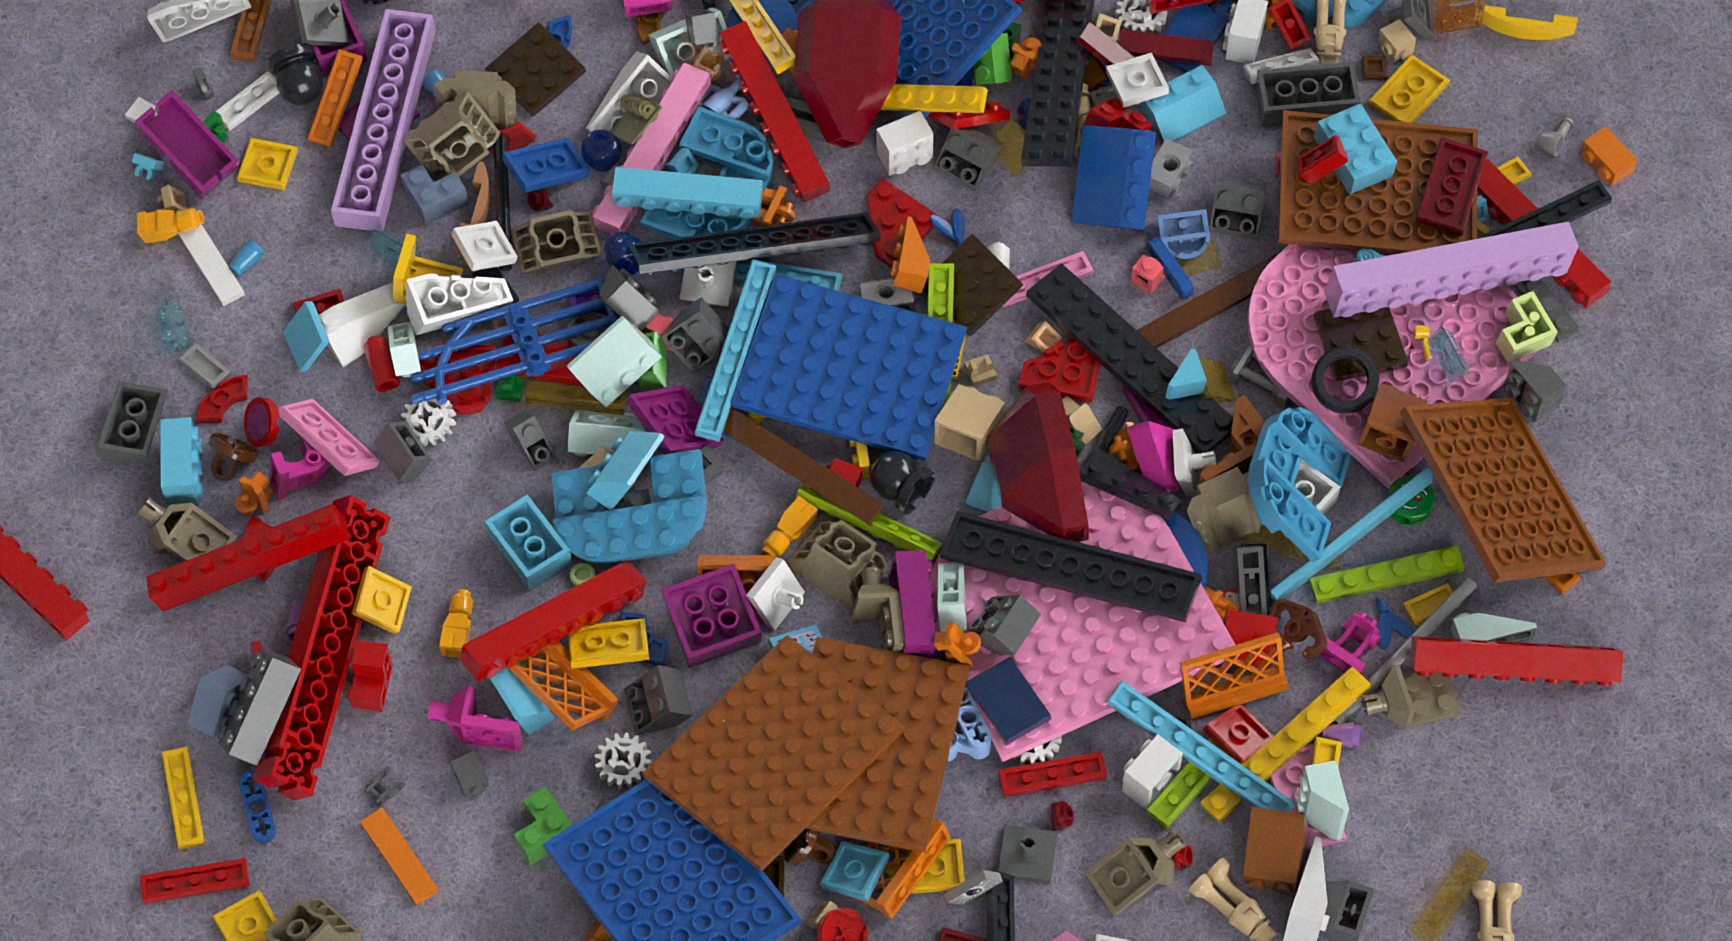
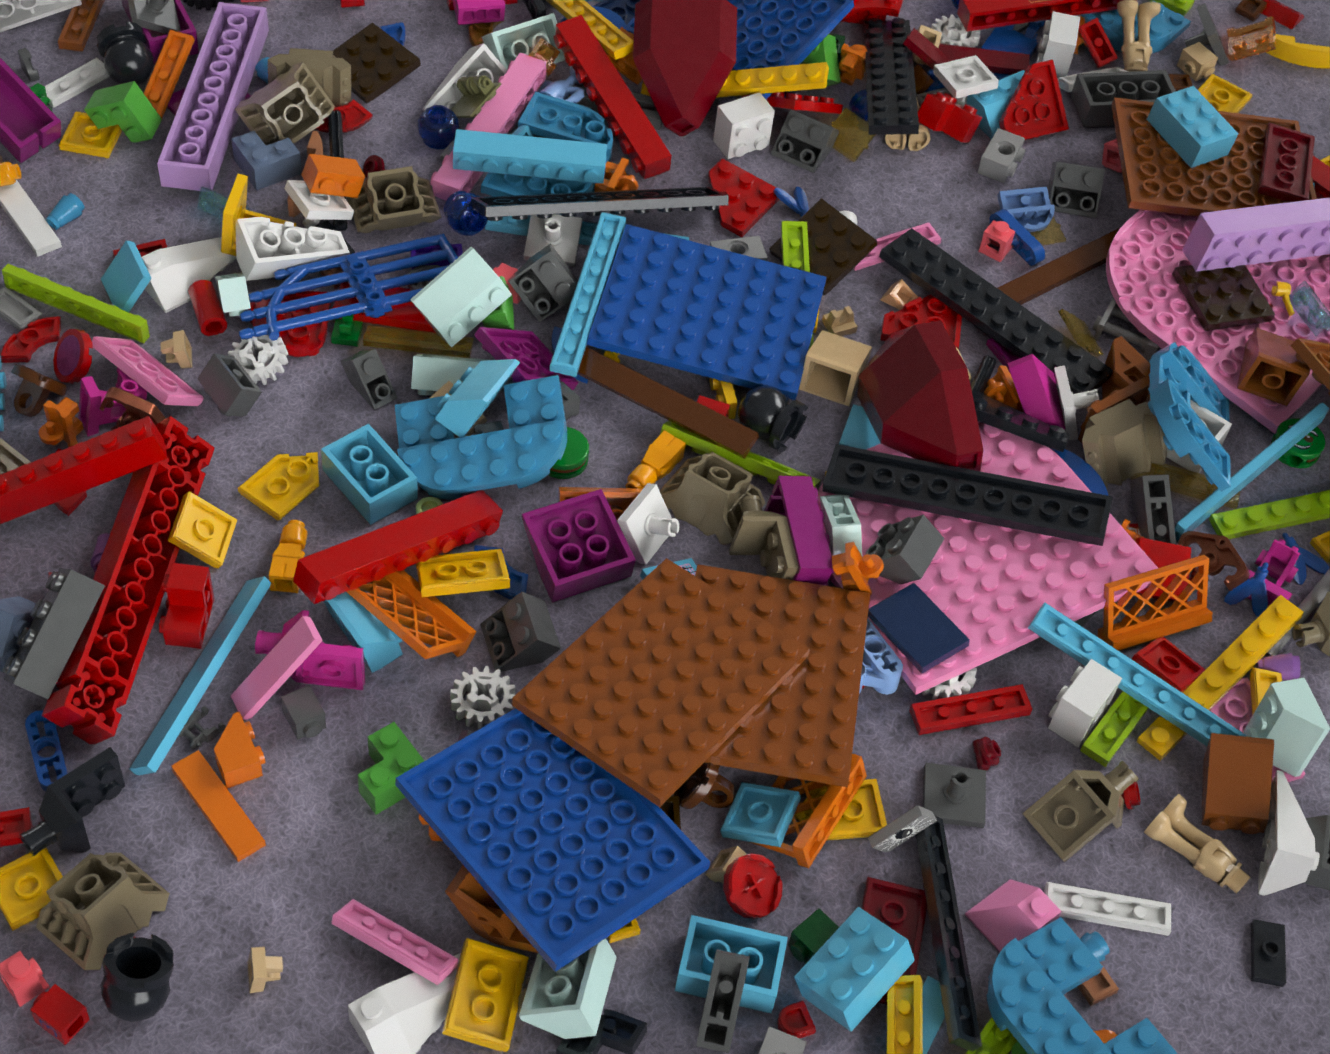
camera: 10 degrees left, 10 degrees down
(262, 362) = (76, 303): none -> lime plate
(281, 851) = (72, 799): none -> black plate
(299, 141) = (125, 107): none -> bright green brick
(320, 486) = (135, 407): none -> copper piece
(356, 411) = (178, 350): none -> tan tile
(383, 737) = (200, 677): none -> medium azure tile
(413, 812) = (236, 753): none -> orange slope
(445, 738) = (276, 667): none -> bright pink tile
(452, 549) = (282, 483): none -> yellow tile
(497, 220) = (333, 175): none -> orange brick
(545, 165) = (382, 137): blue plate -> none
(628, 298) = (466, 234): dark grey slope -> none
(701, 28) = (536, 23): brick -> none
(716, 519) = (574, 458): none -> green head
(912, 261) = (763, 218): orange slope -> none
(1113, 177) = (955, 155): blue slope -> none
(1188, 379) = (1060, 325): medium azure slope -> none
(1209, 109) = (1036, 104): none -> red plate
(1322, 160) = (1165, 131): red slope -> none
(1329, 656) = (1253, 586): none -> blue piece
(1356, 355) = (1232, 301): black tyre -> none

